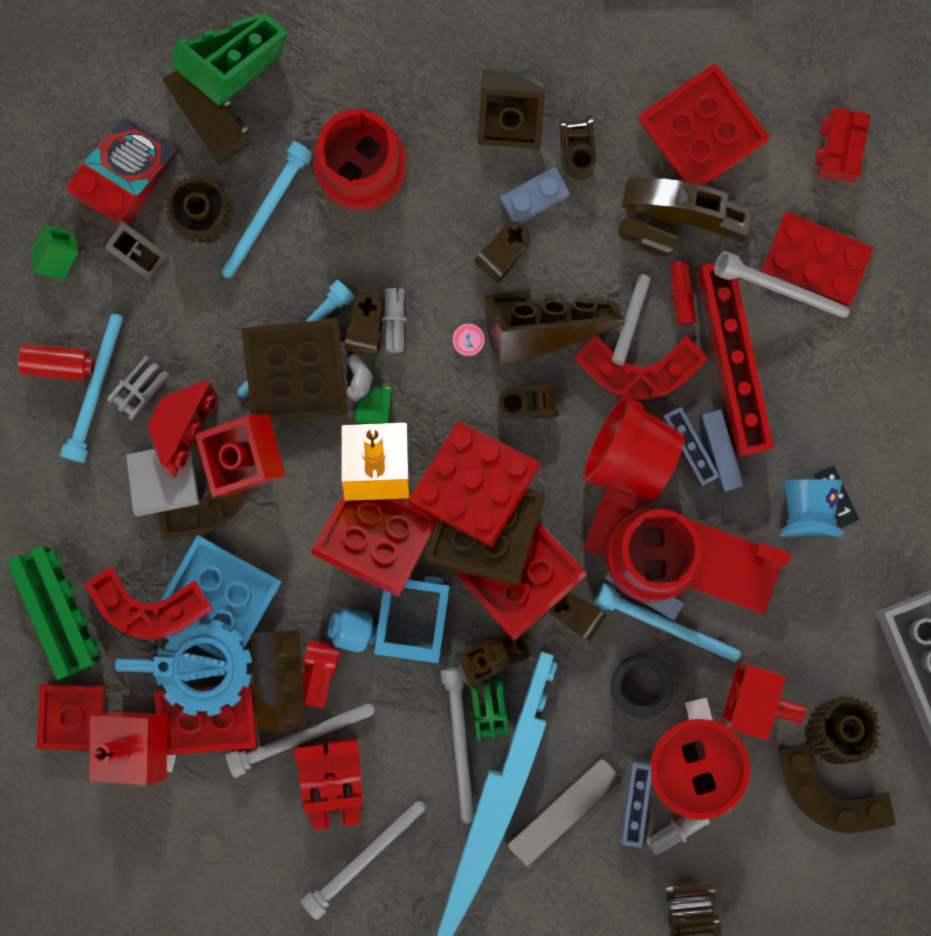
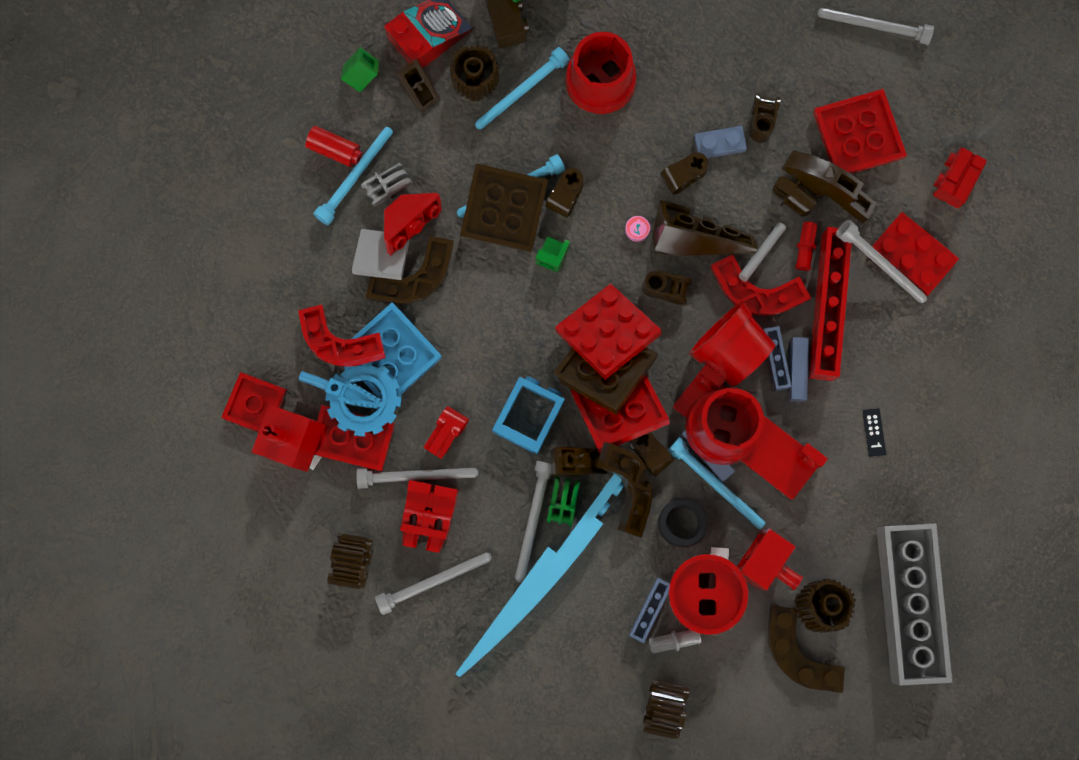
camera: 20 degrees right, 5 degrees down
(54, 611) = (269, 323): green brick -> none
(240, 455) = (444, 251): red brick -> none
(256, 870) = (350, 561): none -> dark brown brick
(278, 680) = (414, 426): dark brown brick -> none
(352, 629) = (481, 408): dark azure head -> none
(361, 380) = (550, 230): light grey arm -> none
(375, 461) = (540, 290): brick -> none
(376, 540) = (522, 344): red plate -> none
(394, 320) = (588, 196): light grey axle -> none
(510, 110) = (722, 76): dark brown slope -> none
(563, 810) = (594, 596): slope -> none
(574, 664) = (638, 489): none -> dark brown plate
(812, 508) = (853, 431): dark azure hat -> none

